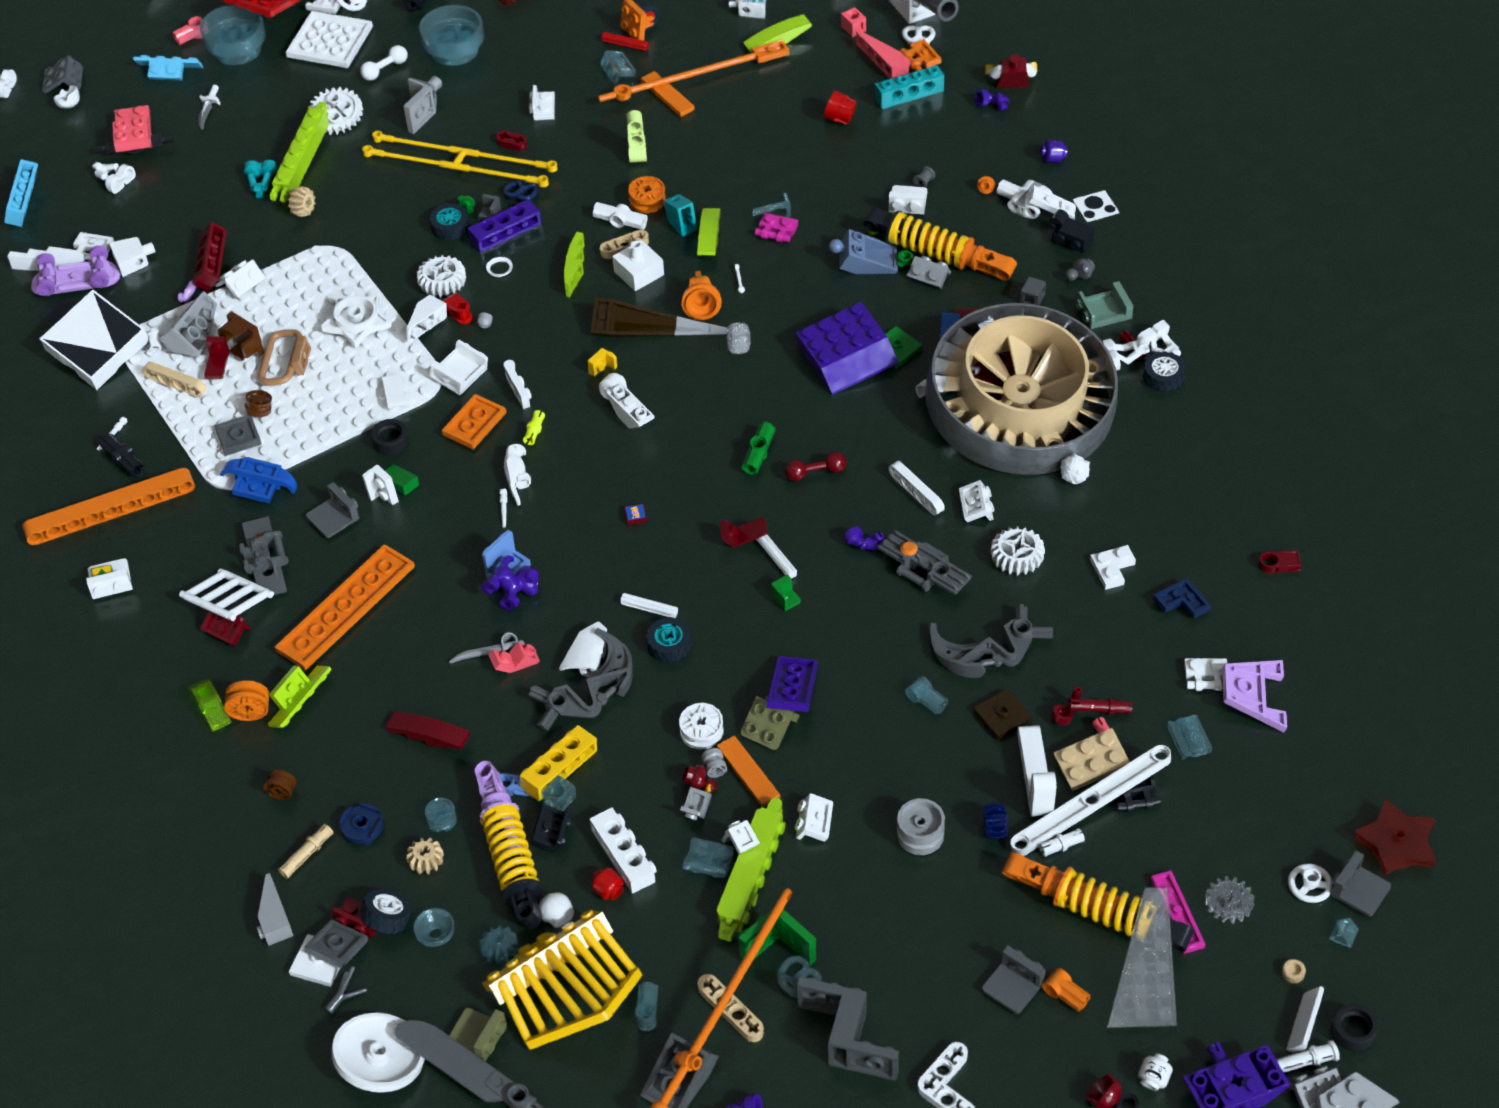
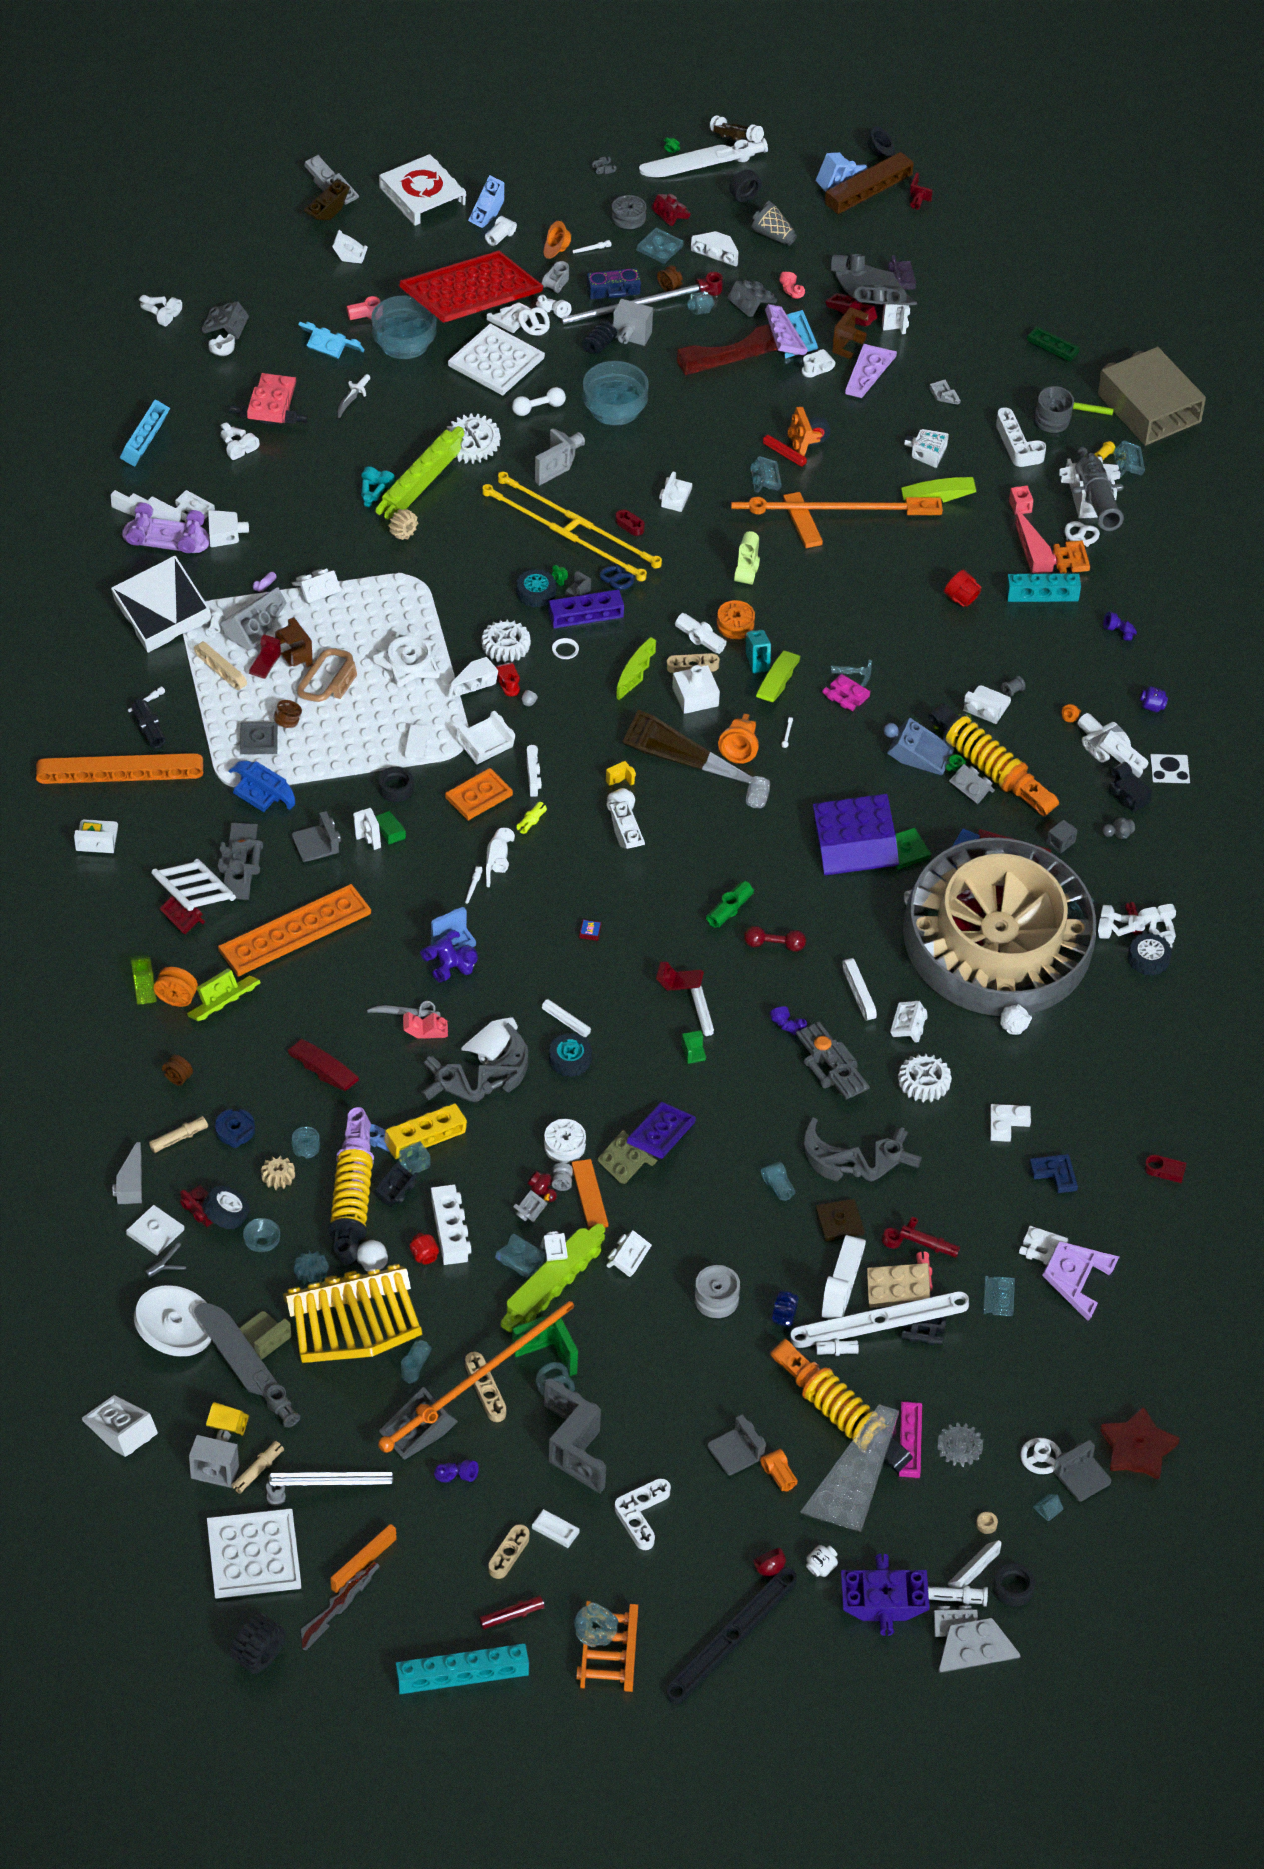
camera: 15 degrees right, 0 degrees up
(209, 256) = (296, 553): dark red brick -> none
(336, 944) = (174, 1221): dark grey tile -> none
(1012, 72) = (1154, 604): dark red torso -> none
(1105, 307) = (1124, 873): sand green panel -> none

